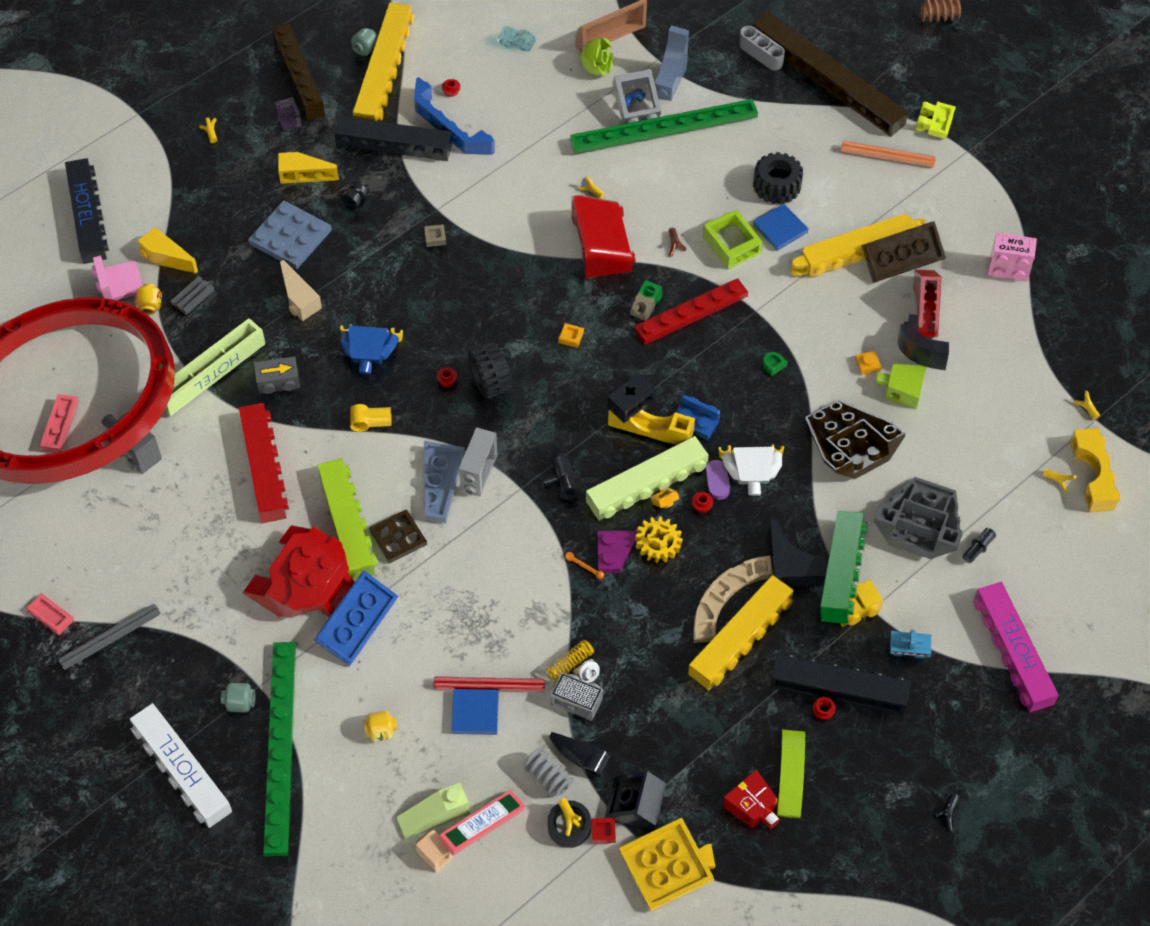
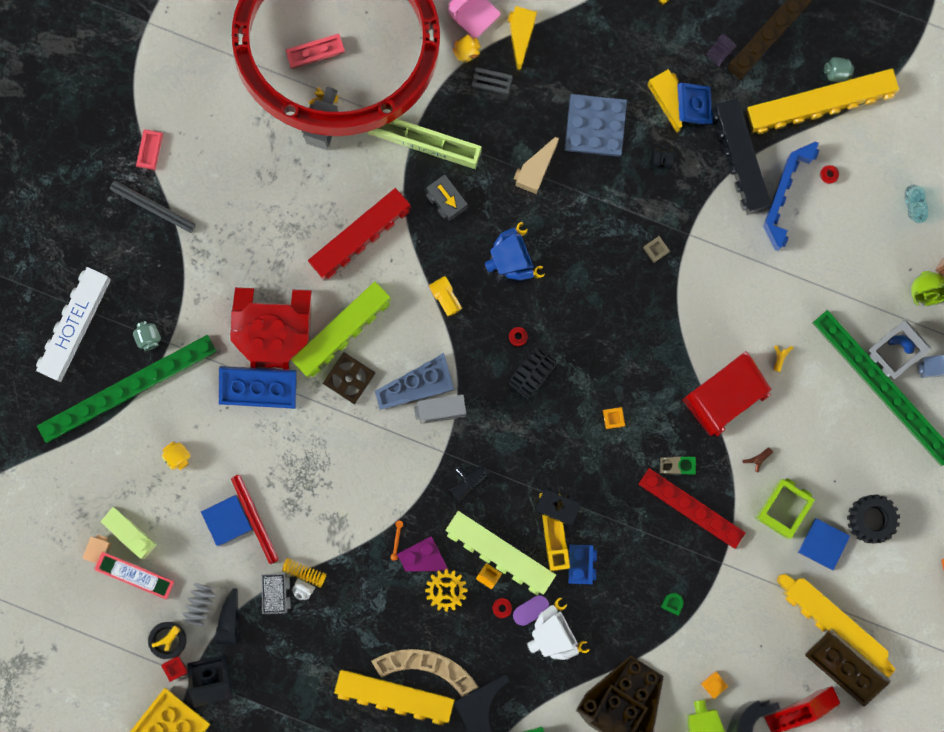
camera: 60 degrees right, 25 degrees up
(323, 150) = (695, 103): none -> blue tile

